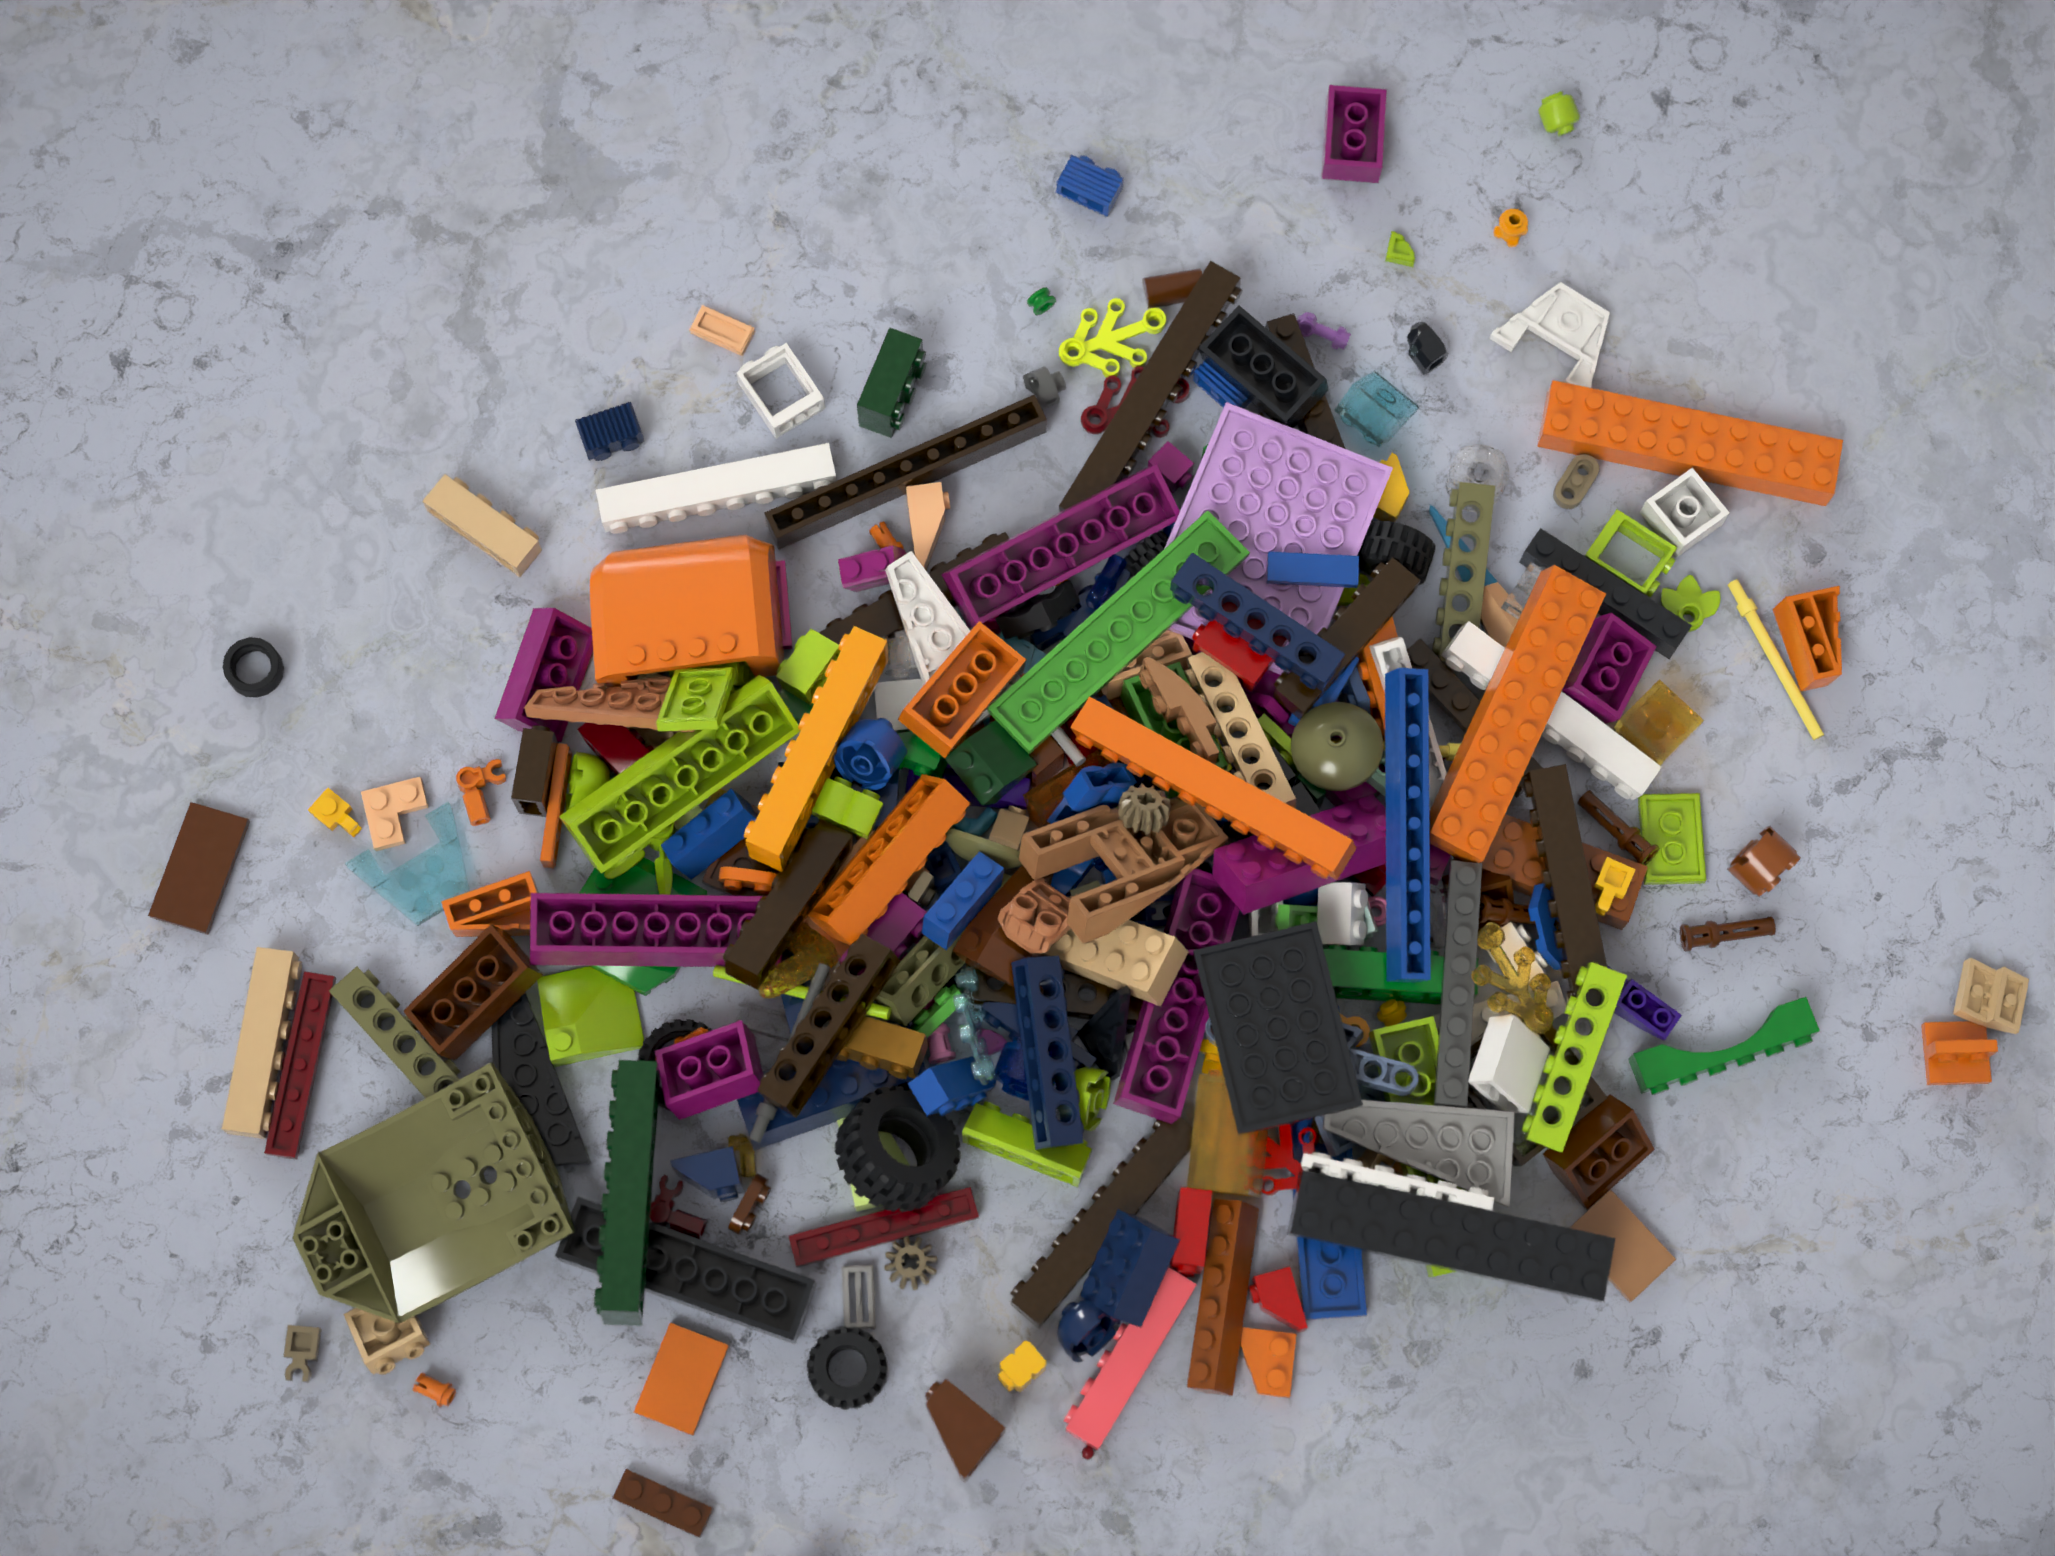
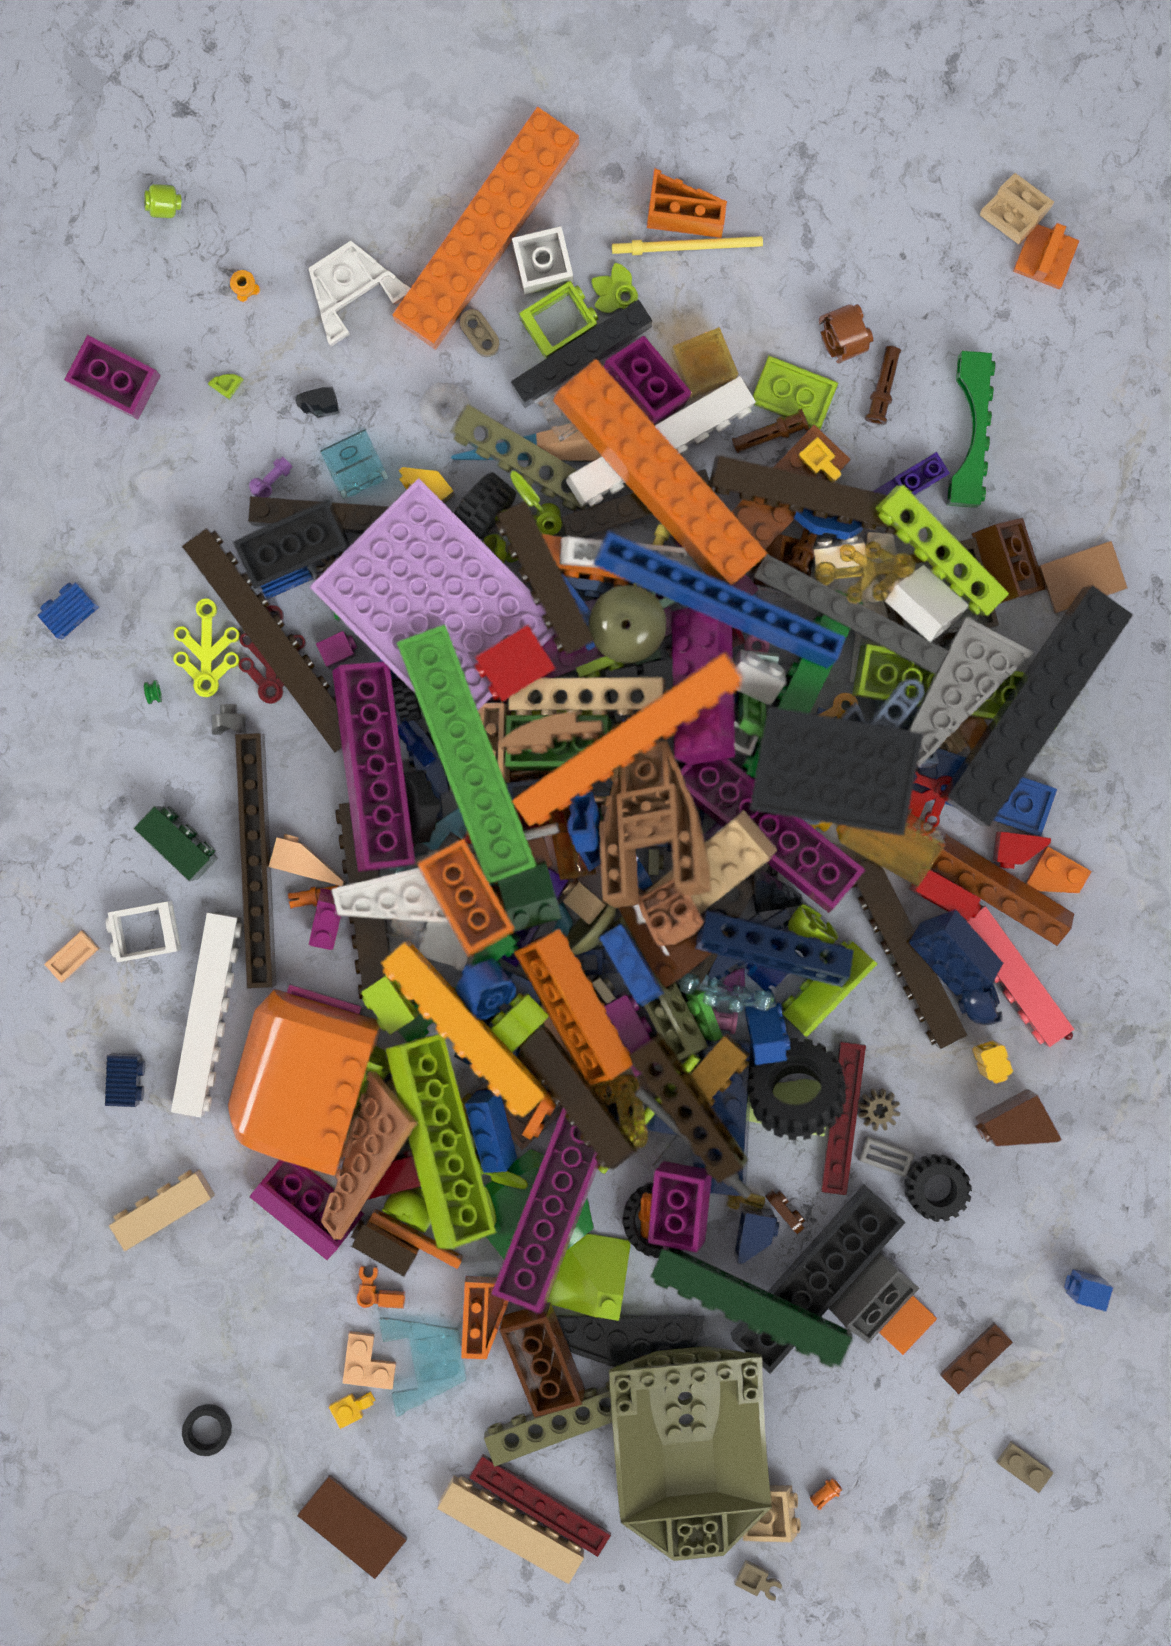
camera: 60 degrees left, 15 degrees up
(678, 1220) = (776, 1266): dark red bar -> none
(688, 1345) = (873, 1298): none -> dark grey slope
(696, 699) = (390, 1109): lime tile -> none
(1144, 809) = (628, 793): dark tan gear -> none
(1170, 287) = (183, 581): reddish brown brick -> none
(1271, 705) = (571, 661): magenta tile -> none
(1275, 623) = (561, 605): dark blue brick -> none
(1312, 569) = (477, 579): blue tile -> none
(1385, 1178) = (979, 738): white wing -> none
(1392, 1012) = (841, 669): yellow plate -> none
(1416, 626) = (547, 515): none -> lime plant

